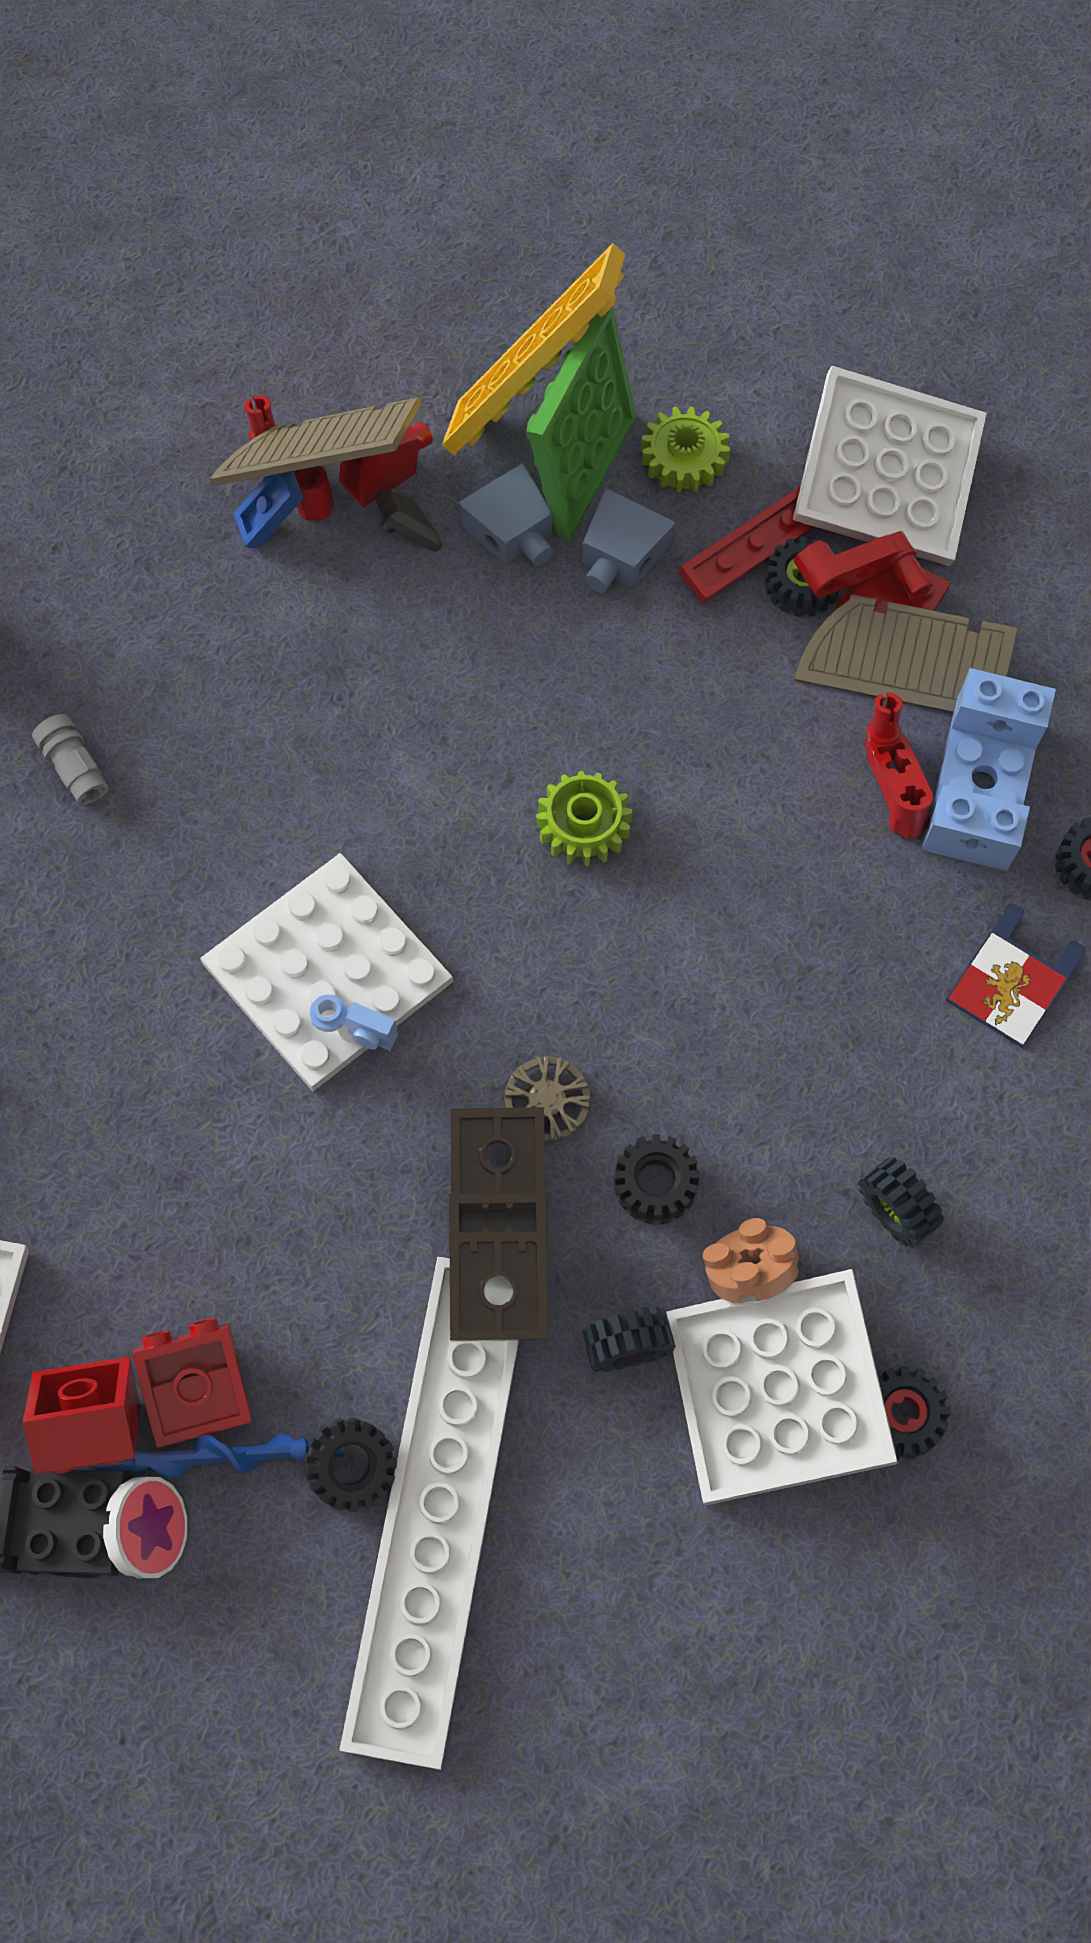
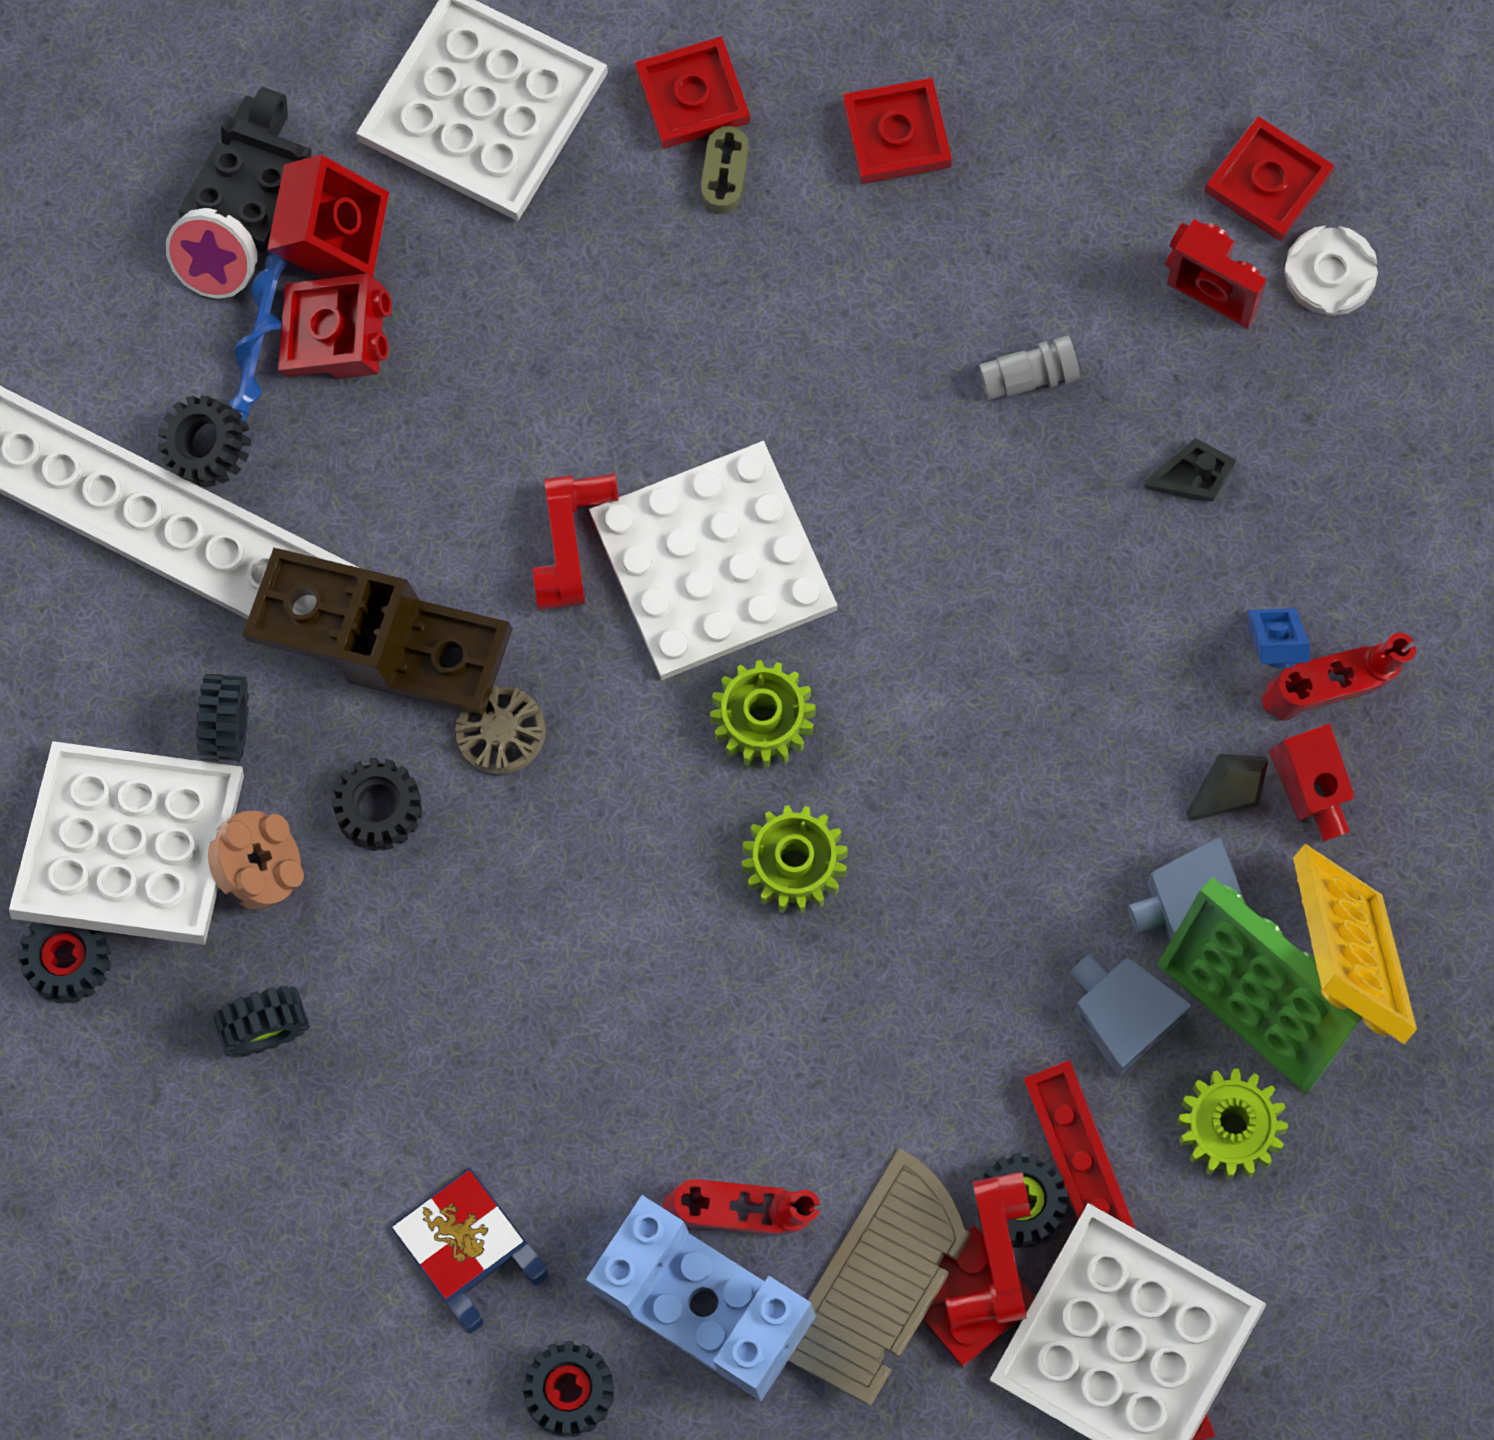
camera: 110 degrees right, 5 degrees up
(132, 615) = (1193, 472): none -> pearl dark grey piece
(320, 442) = (1314, 691): dark tan piece -> none
(364, 1024) = (620, 566): light blue plate -> none
(385, 1083) = (562, 583): none -> red beam
(461, 901) = (762, 738): none -> lime gear

